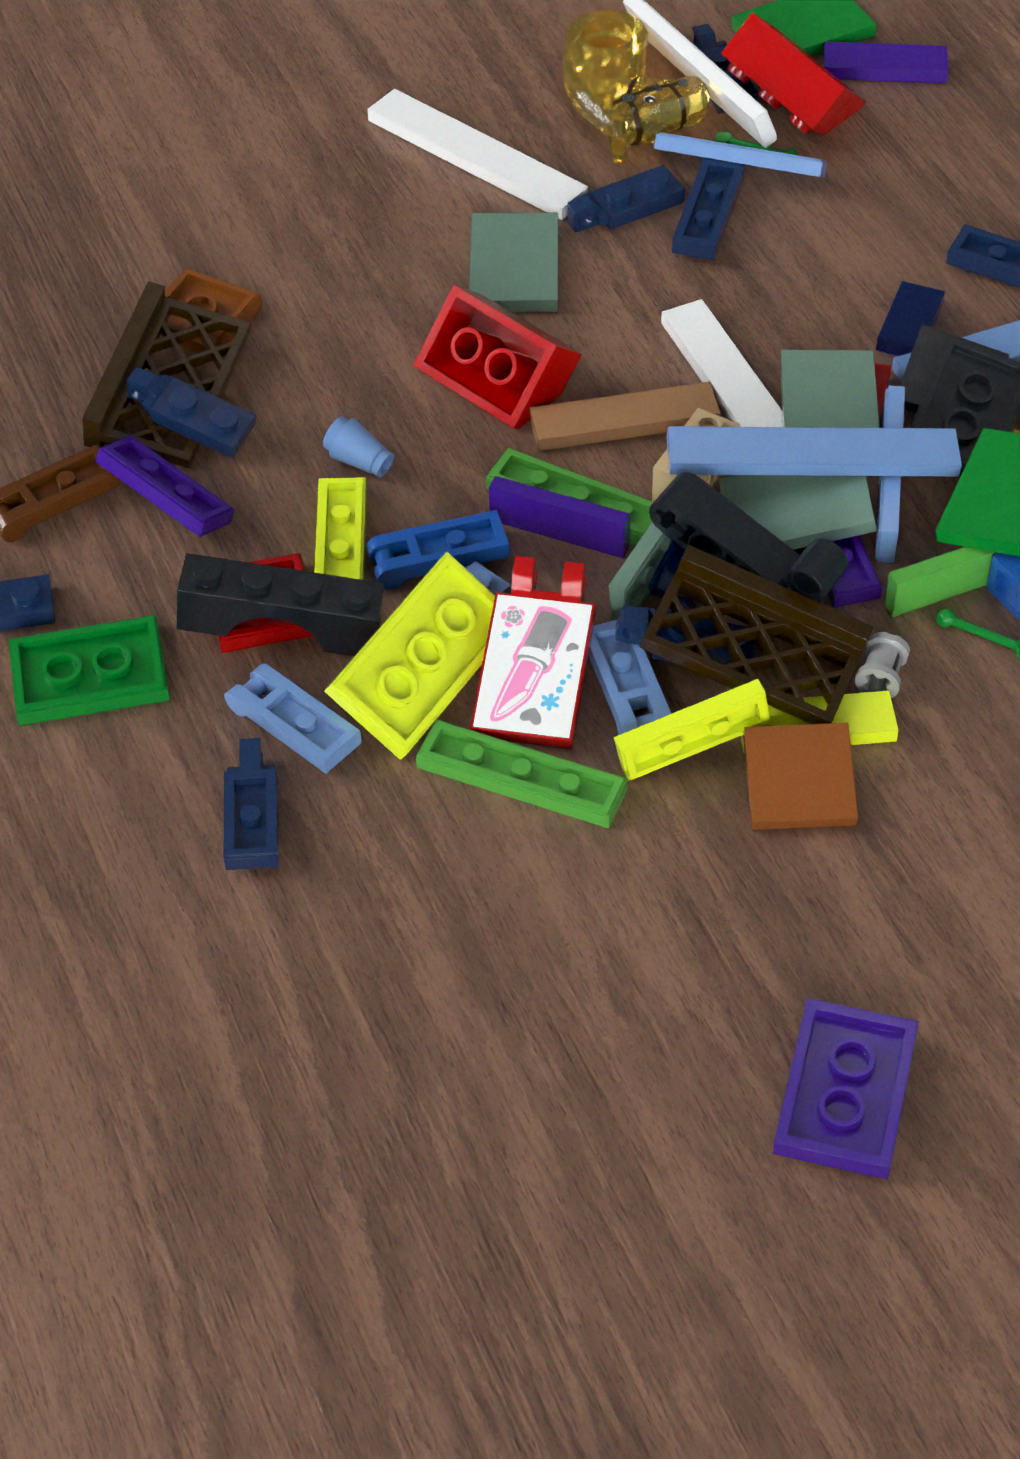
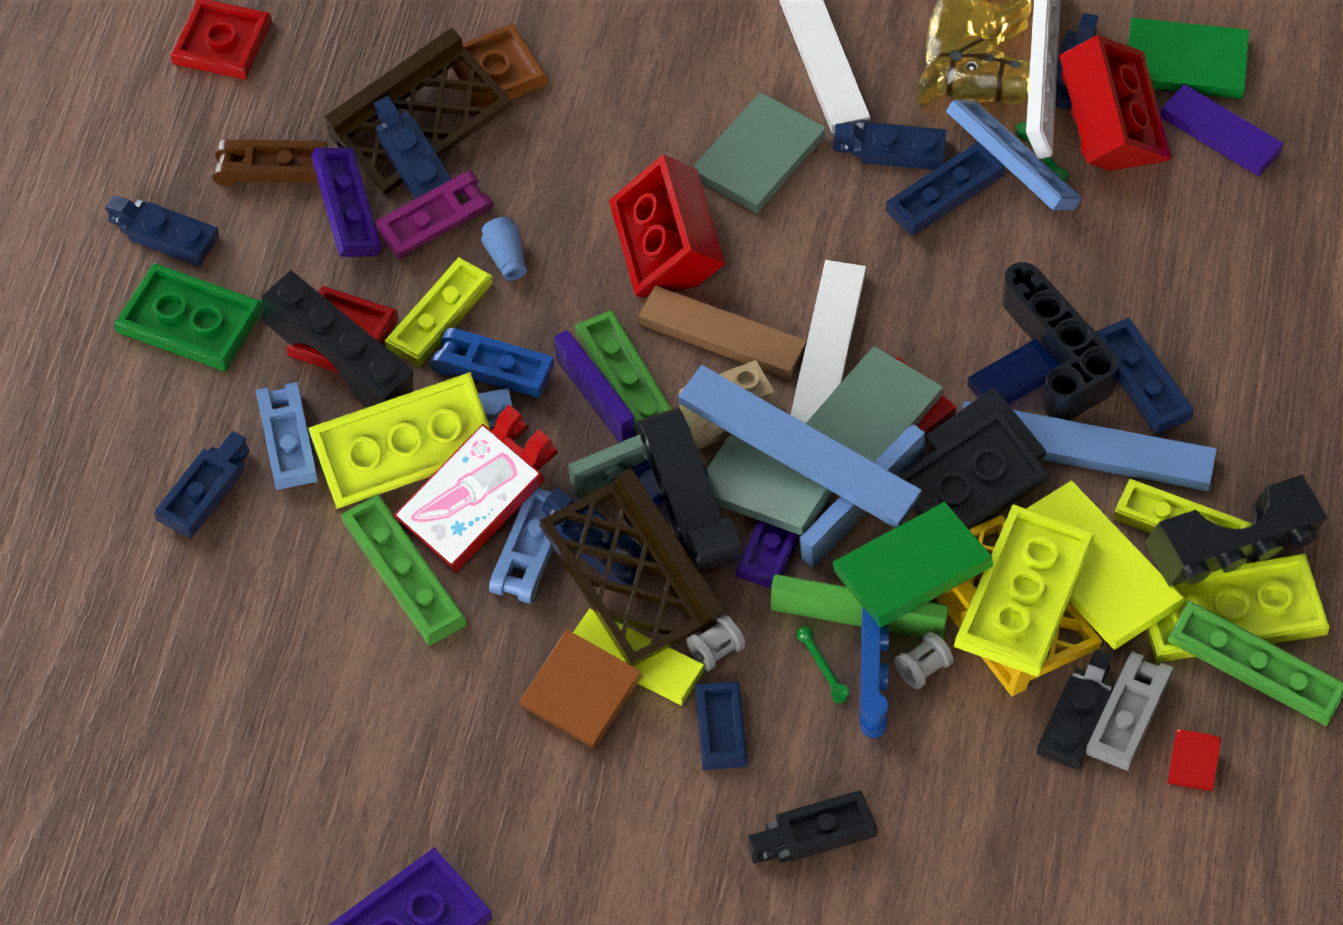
camera: 35 degrees right, 5 degrees up
(260, 455) = (433, 214): none -> magenta plate
(692, 730) = (531, 609): neon yellow tile -> none
(893, 255) = (1056, 326): none -> black beam
(951, 735) = (721, 725): none -> dark blue tile

